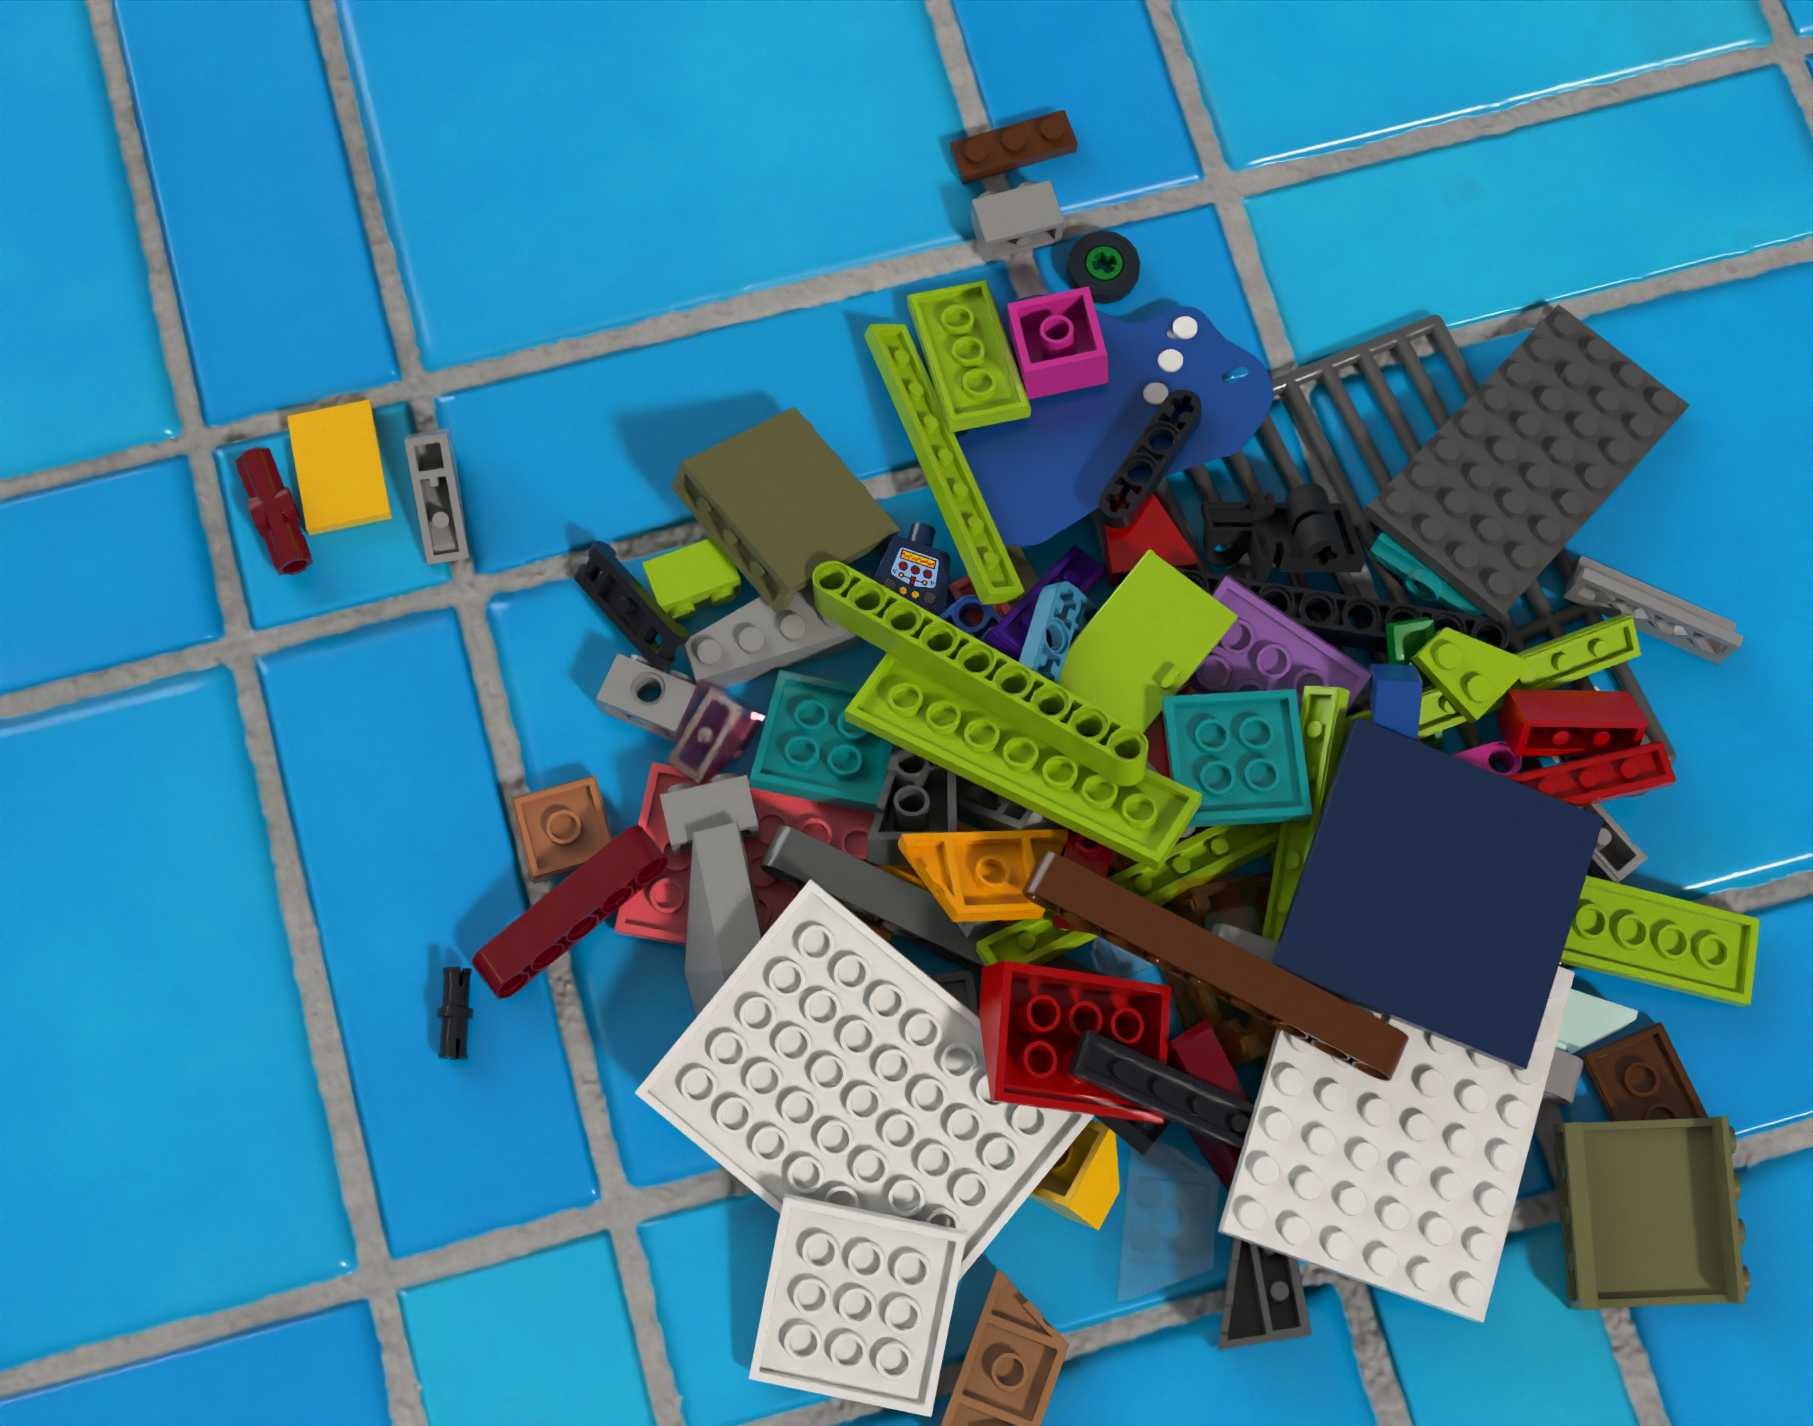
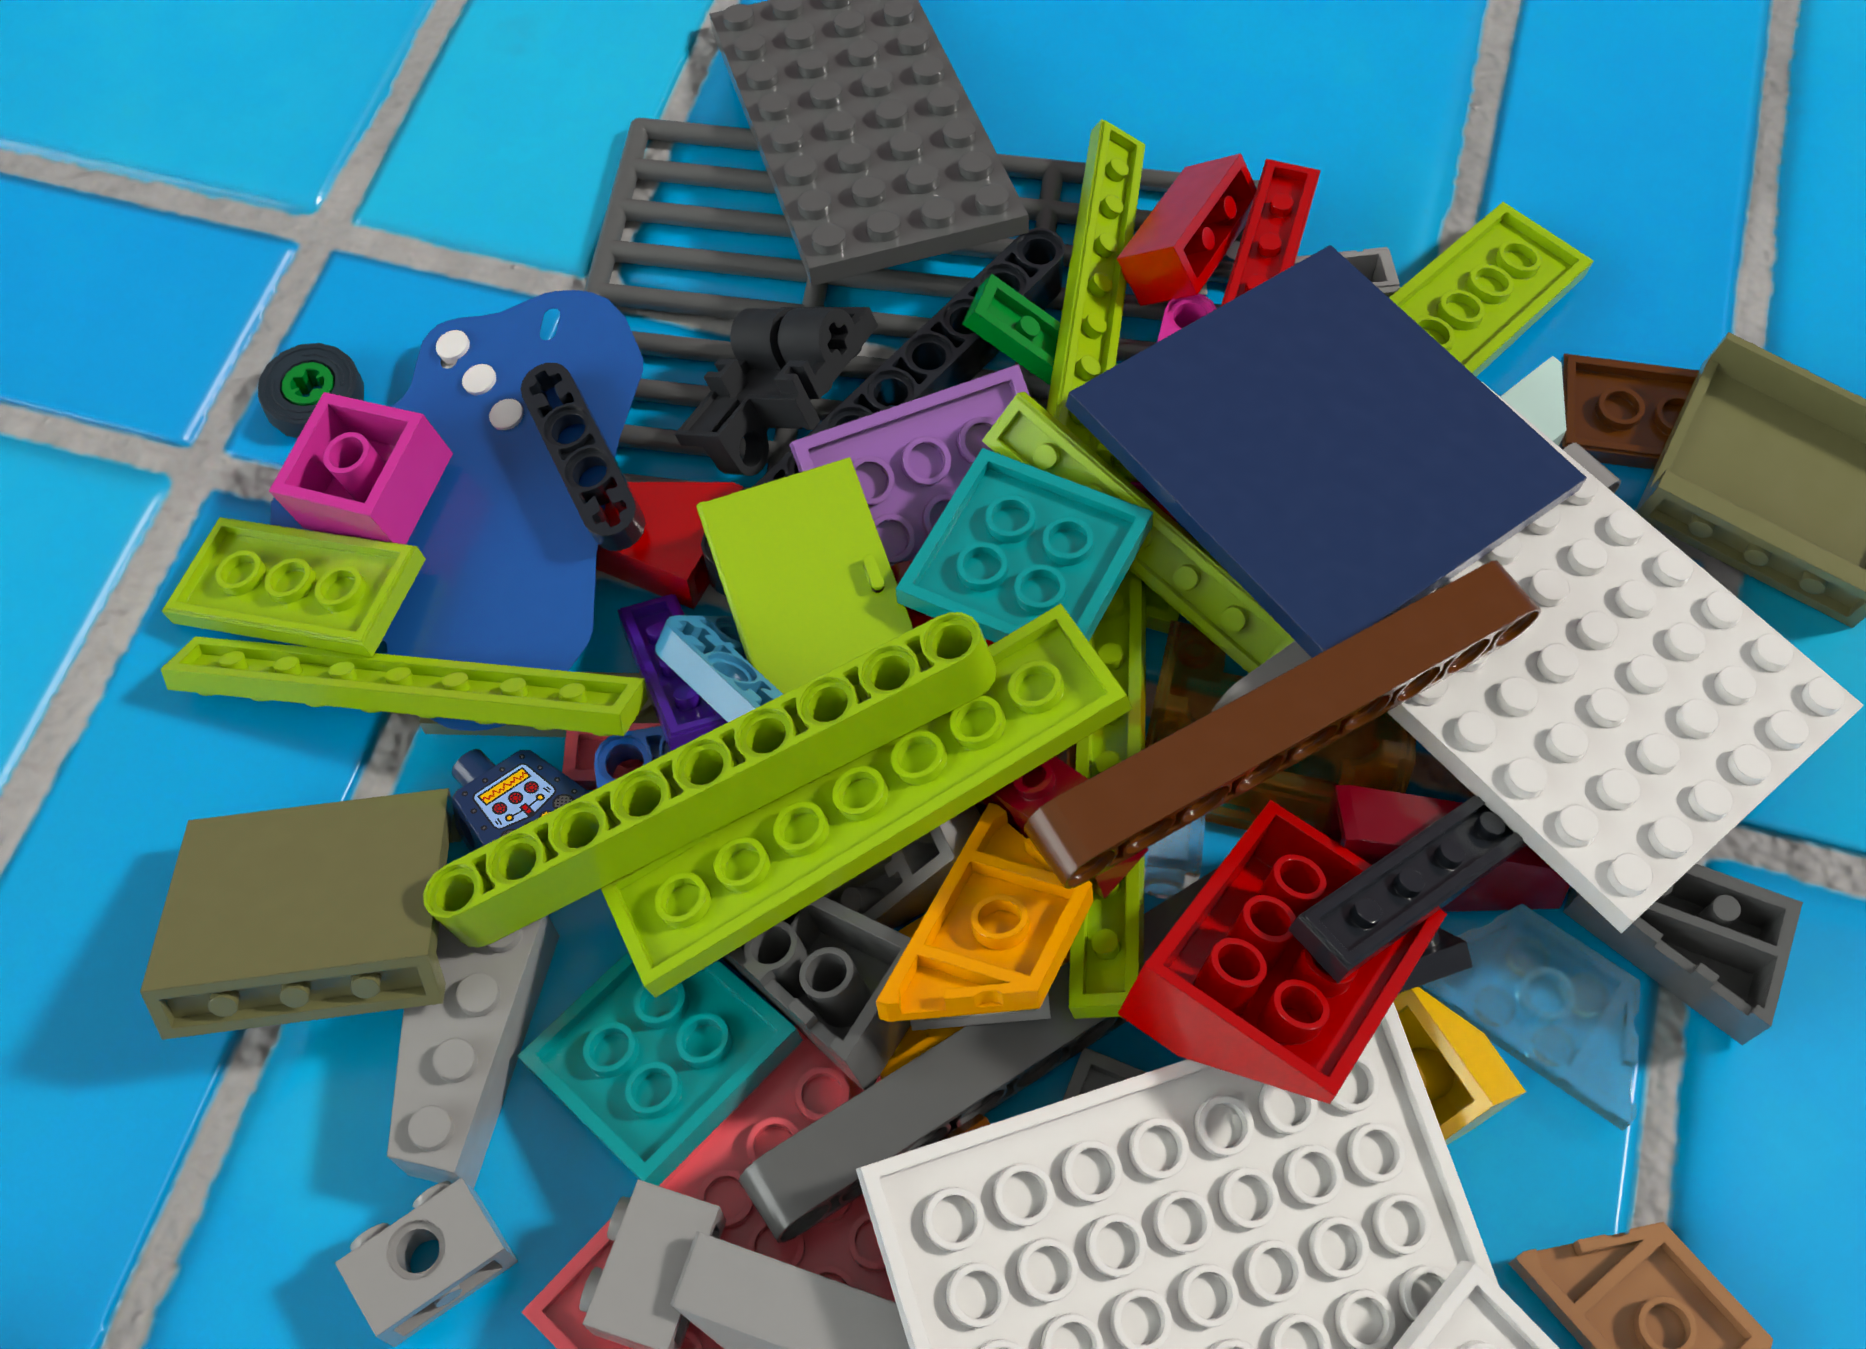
camera: 55 degrees left, 10 degrees down
(630, 607) = (283, 1203): black plate -> none
(692, 579) = (309, 1097): lime brick -> none
(715, 735) = (548, 1198): clear pink slope -> none
(1013, 147) = (88, 401): reddish brown plate -> none
(1016, 219) = (176, 441): light grey brick -> none
(1396, 698) = (1063, 351): blue slope -> none
(1418, 577) = (922, 282): teal piece -> none
(1469, 670) = (1073, 279): lime wing -> none
(1653, 610) = (1124, 101): light grey fence -> none

